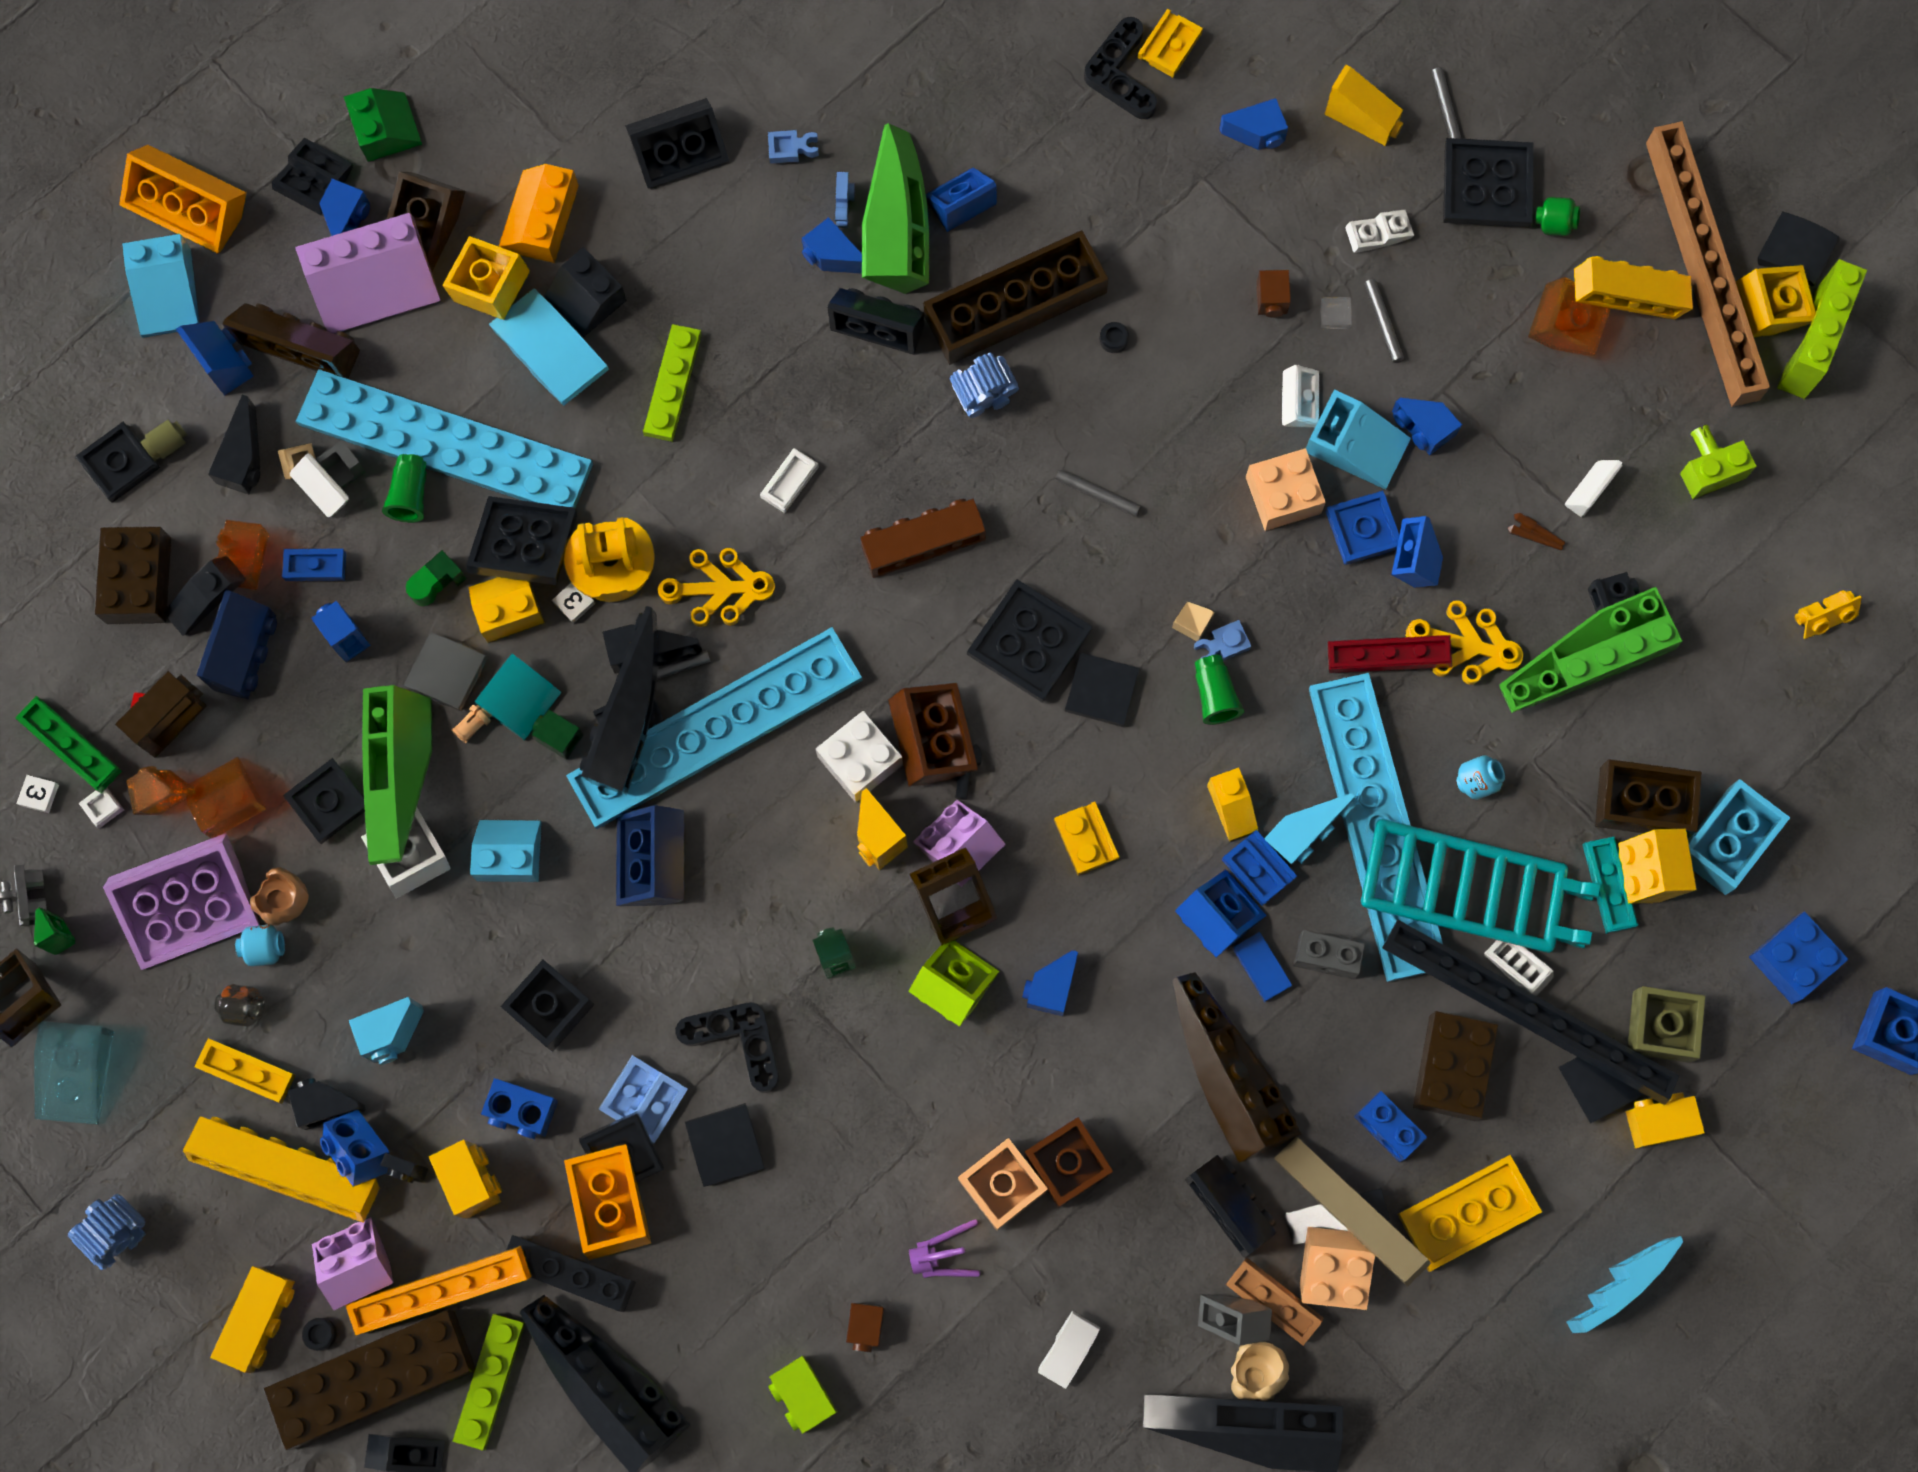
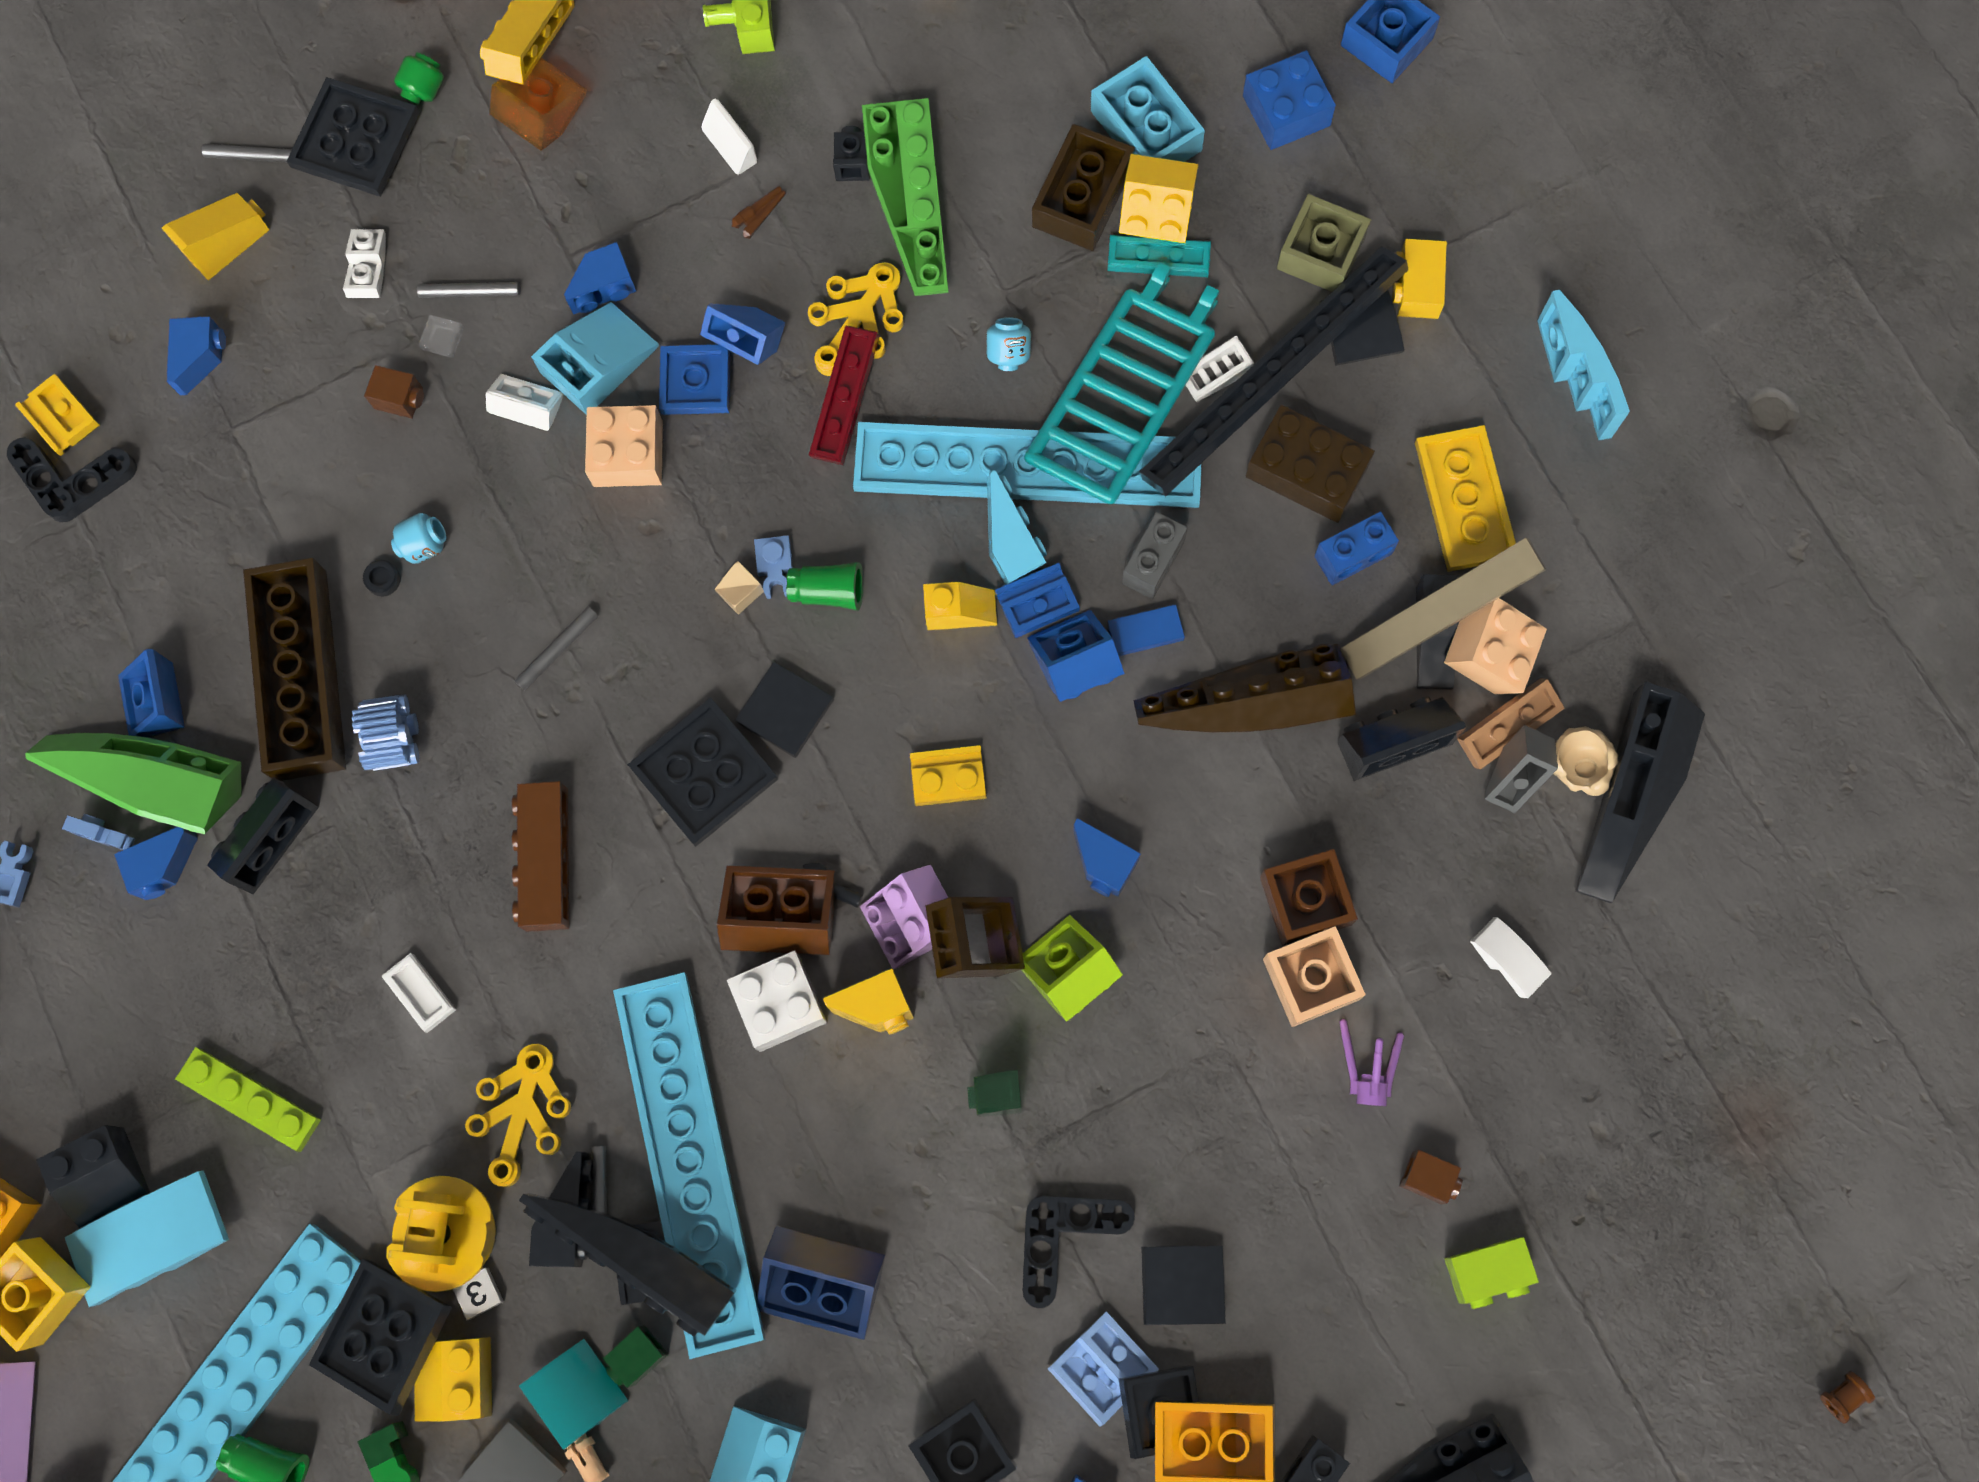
camera: 70 degrees left, 0 degrees up
(1154, 354) = (418, 538): none -> medium azure head

